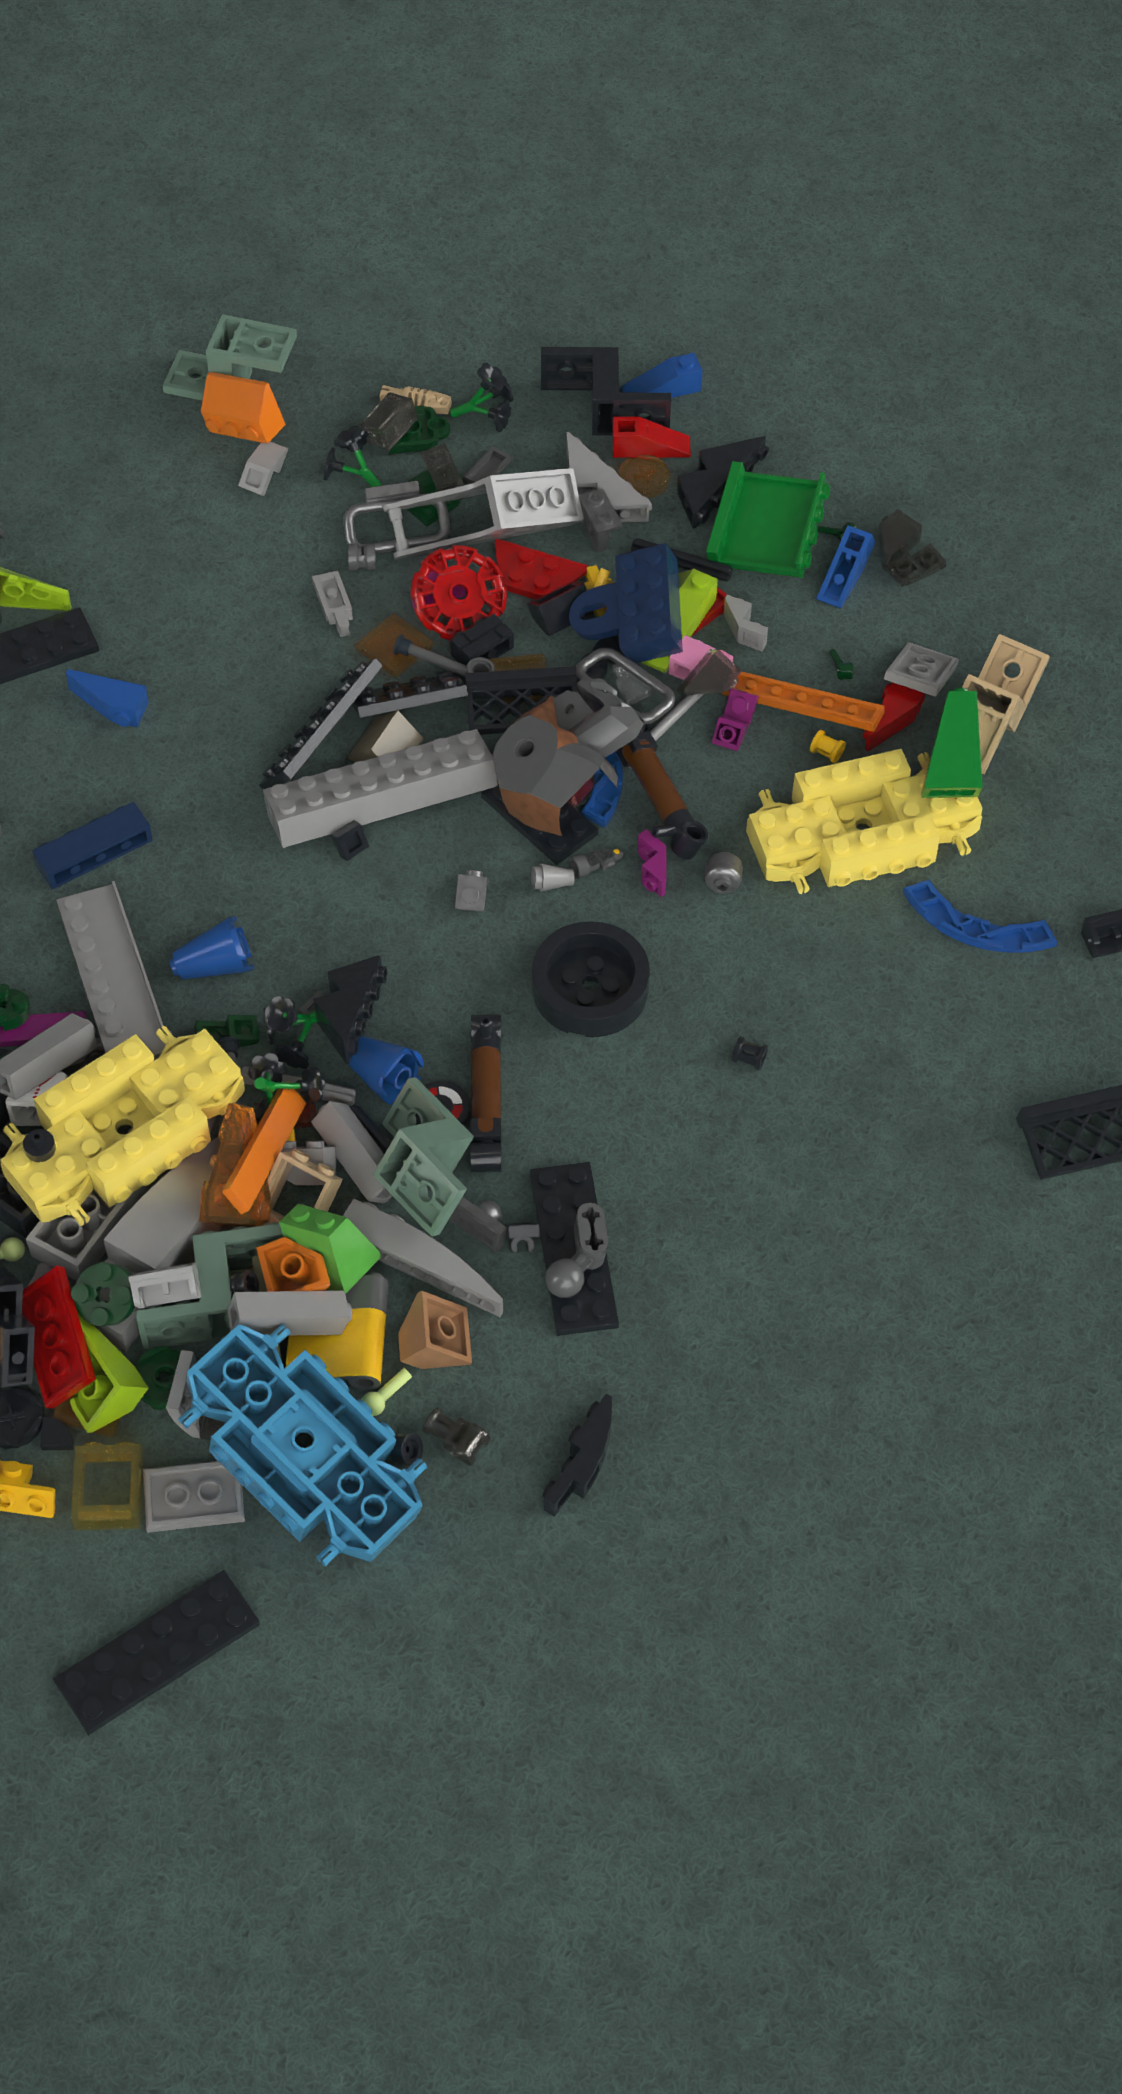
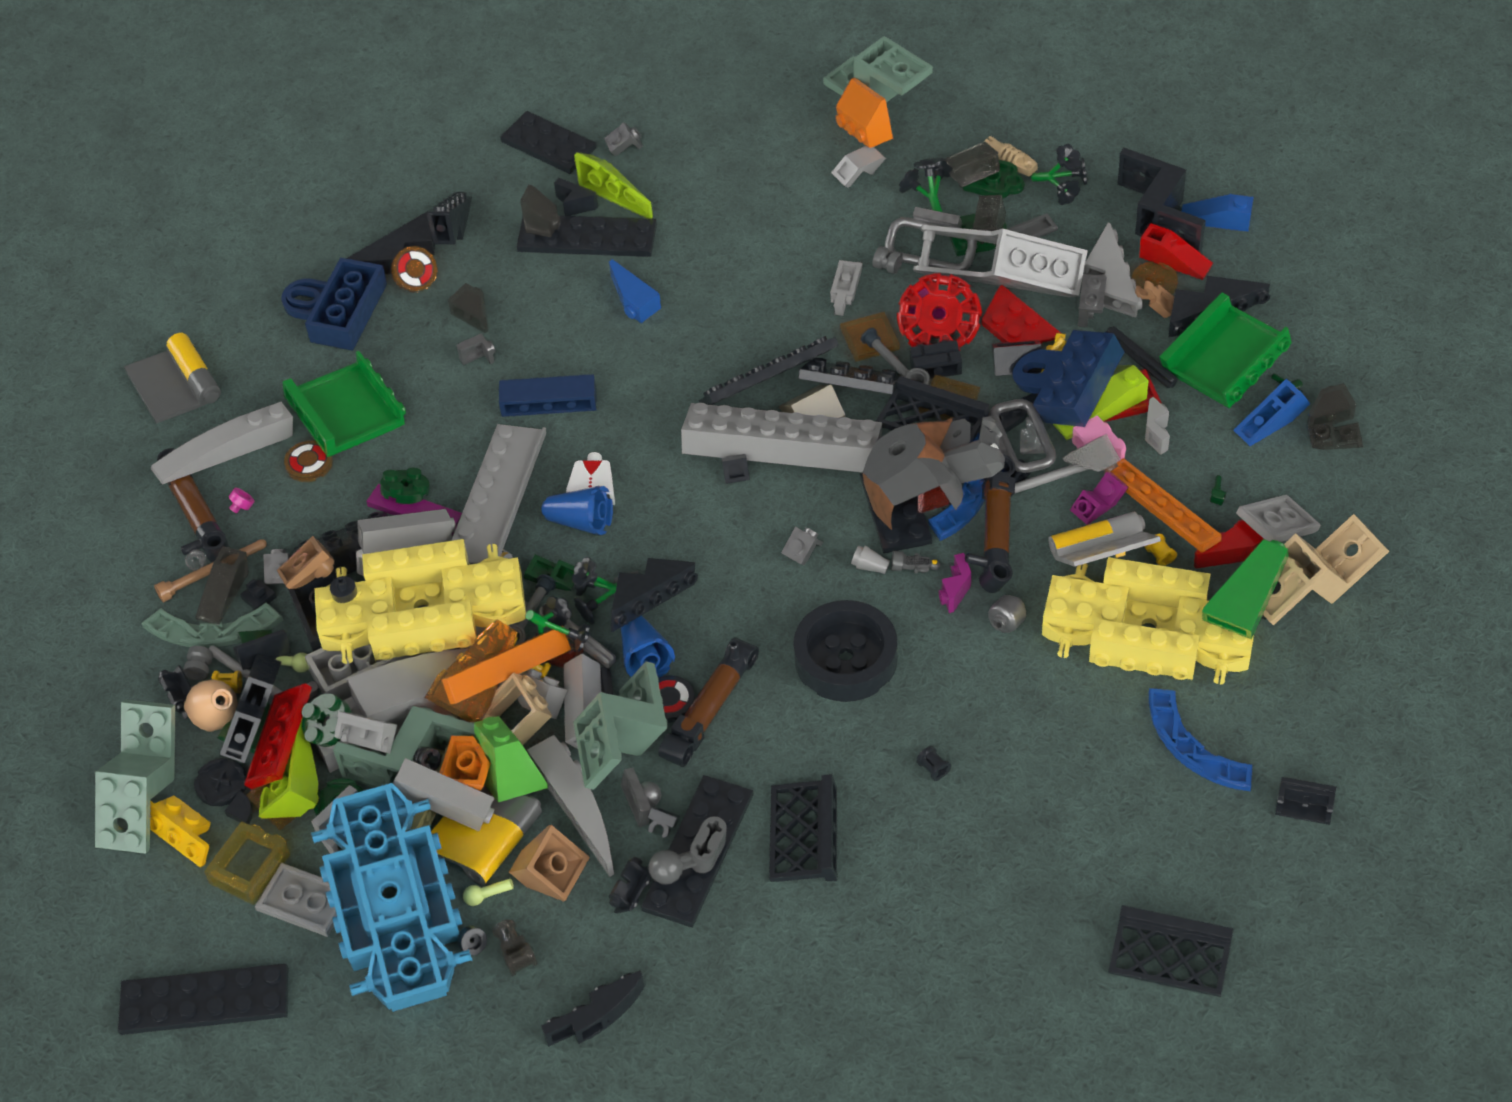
camera: 35 degrees right, 5 degrees down
(203, 910) = (592, 473): none -> white torso
(536, 1320) = (625, 895): none -> black hinge
(664, 493) = (1160, 299): none -> medium nougat plate
(691, 1169) = (827, 830): none -> black fence
(771, 761) = (1101, 540): none -> light grey door

